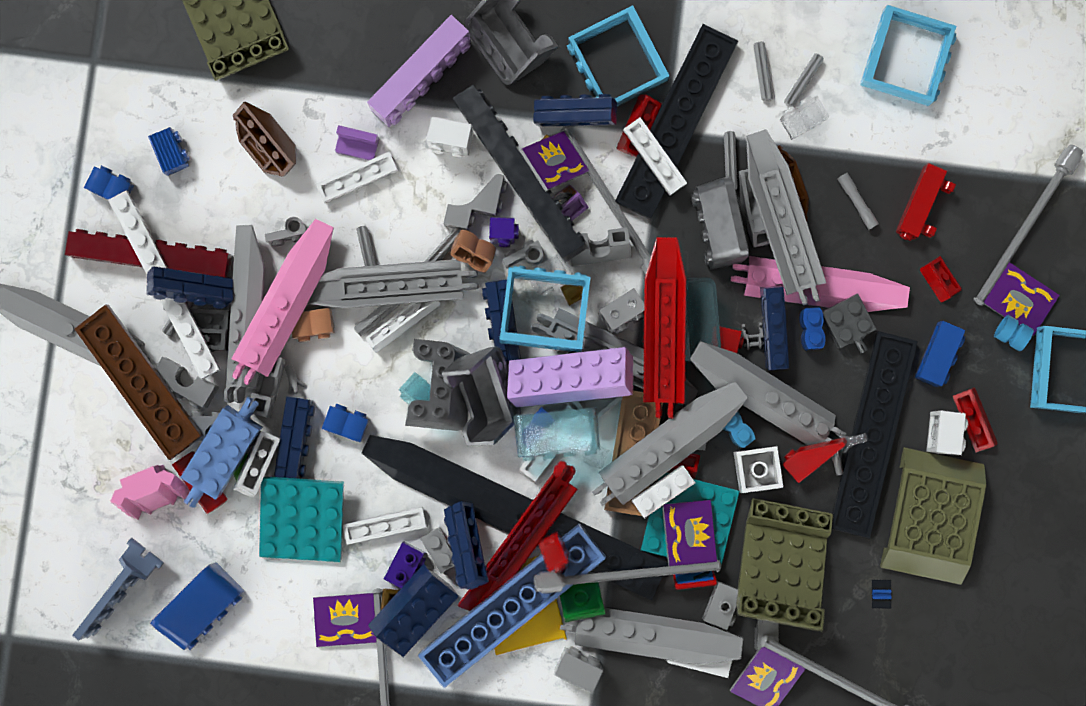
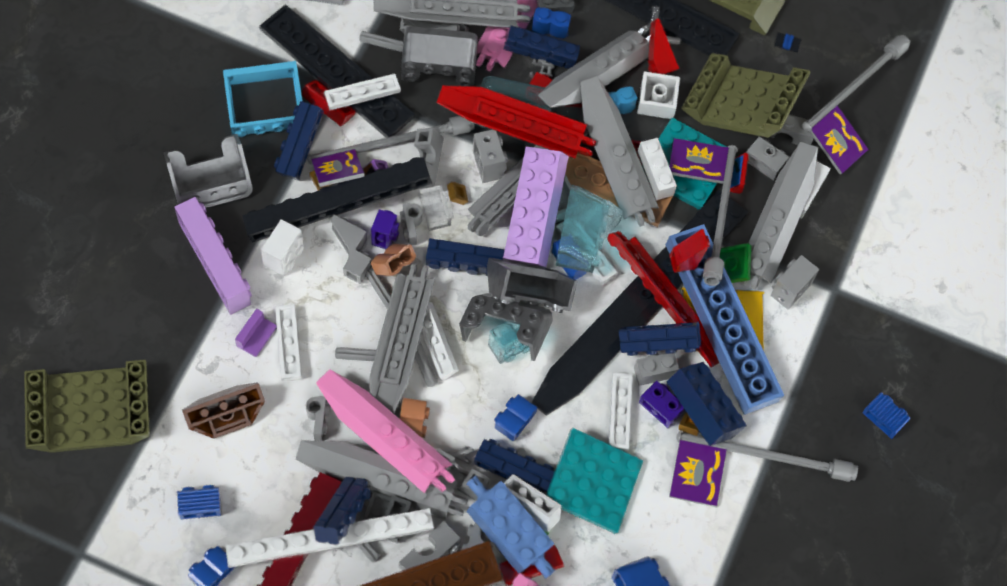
camera: 85 degrees left, 20 degrees down
(541, 275) = (480, 181): medium azure window -> none

